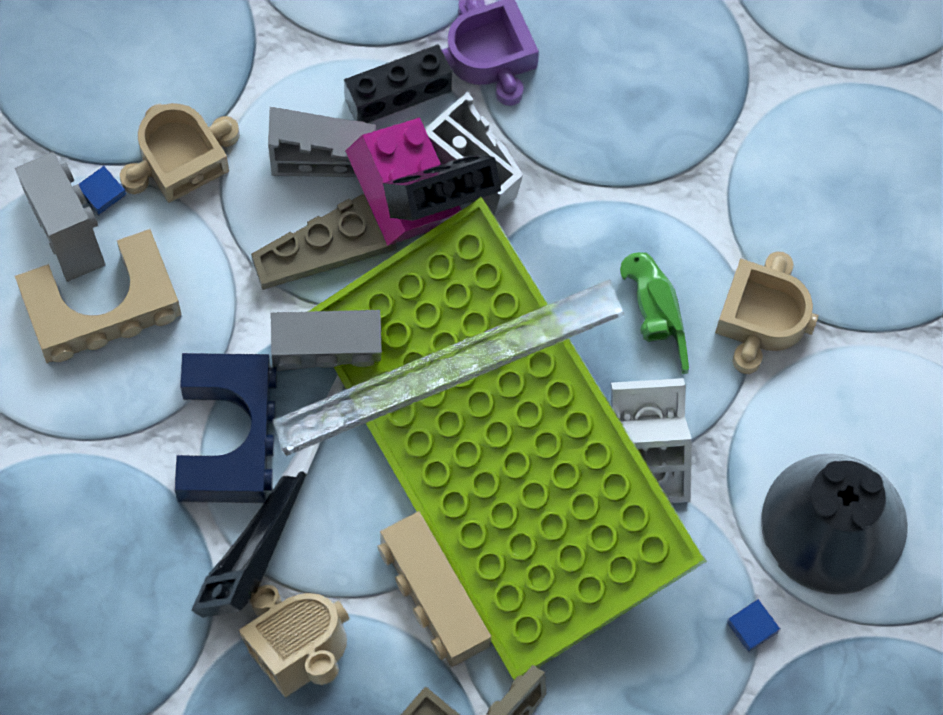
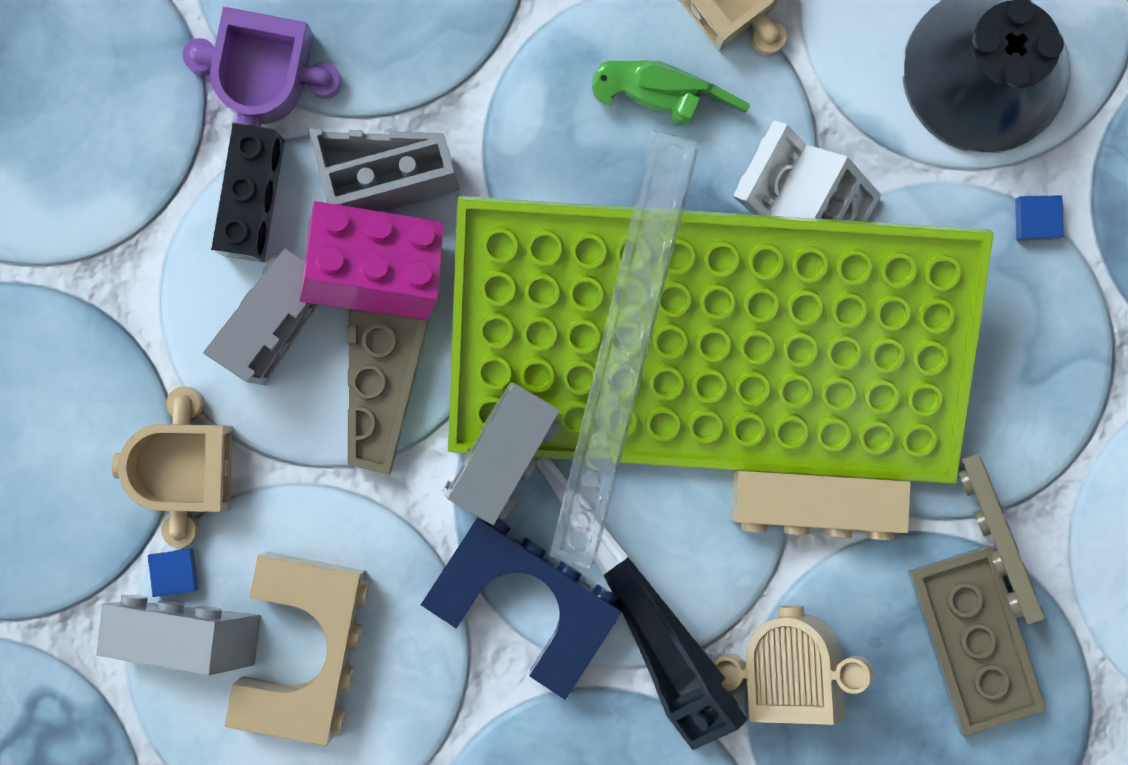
camera: 60 degrees left, 20 degrees up
(442, 187) = (420, 233): black brick -> none

